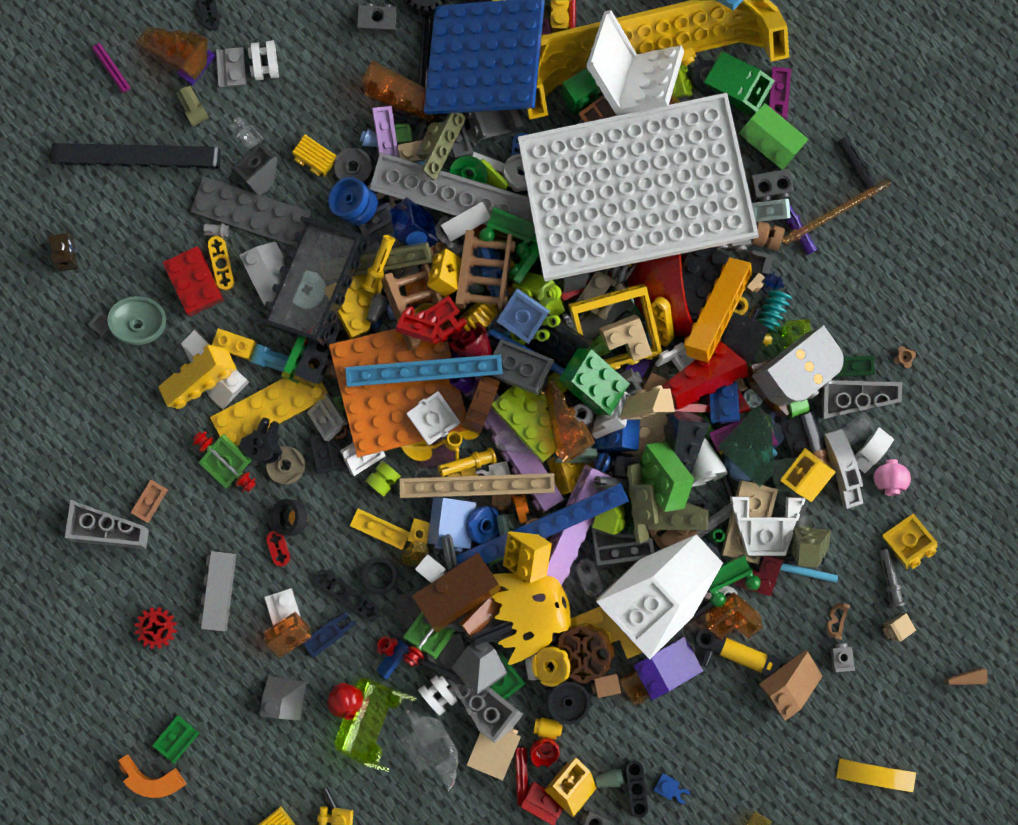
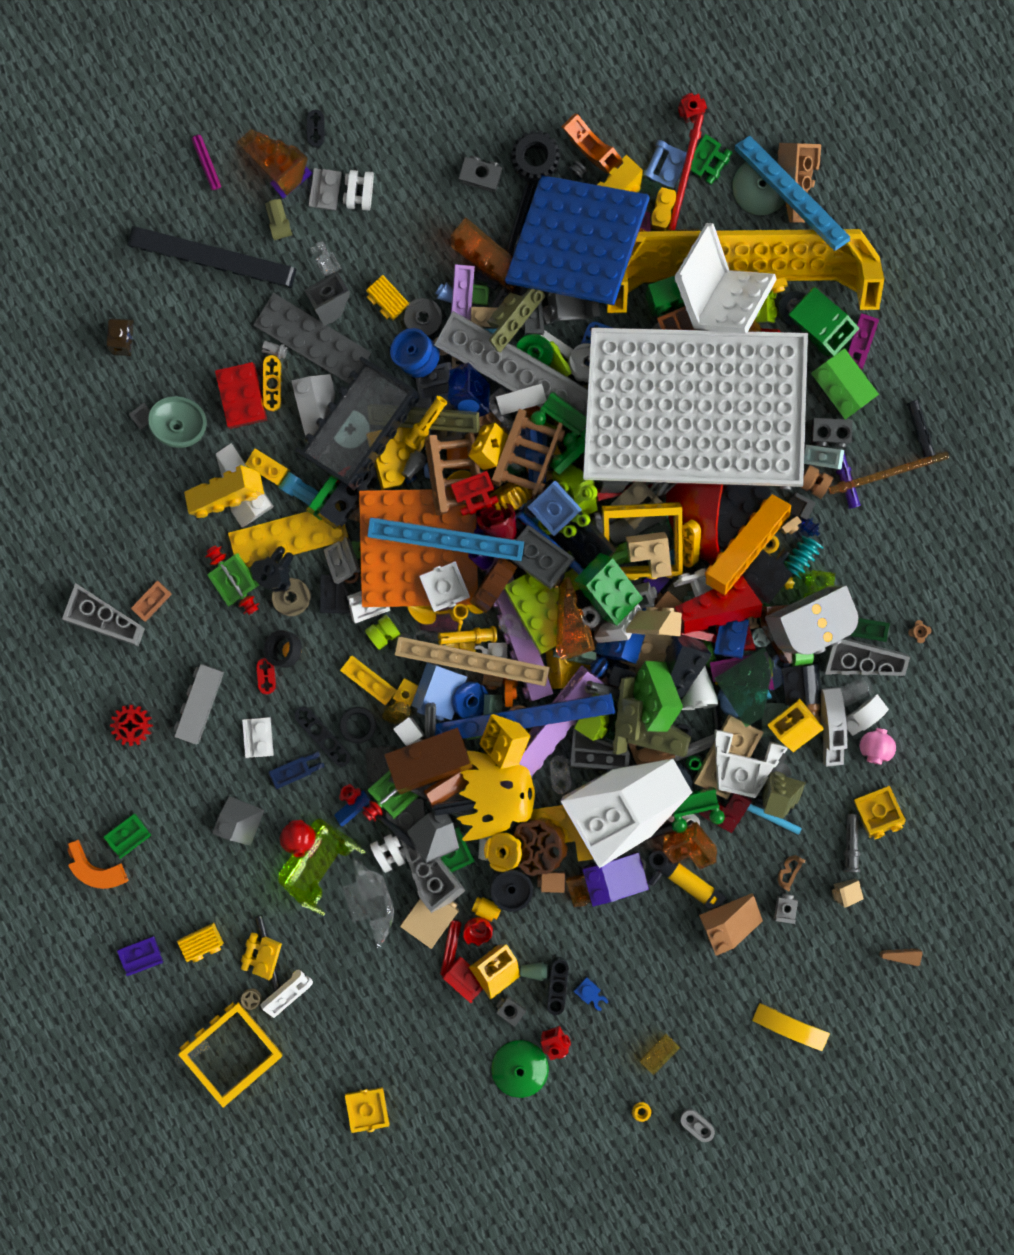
camera: 20 degrees right, 5 degrees up
(287, 634) = (256, 761): clear orange brick -> none
(418, 325) = (450, 494): red plate -> none

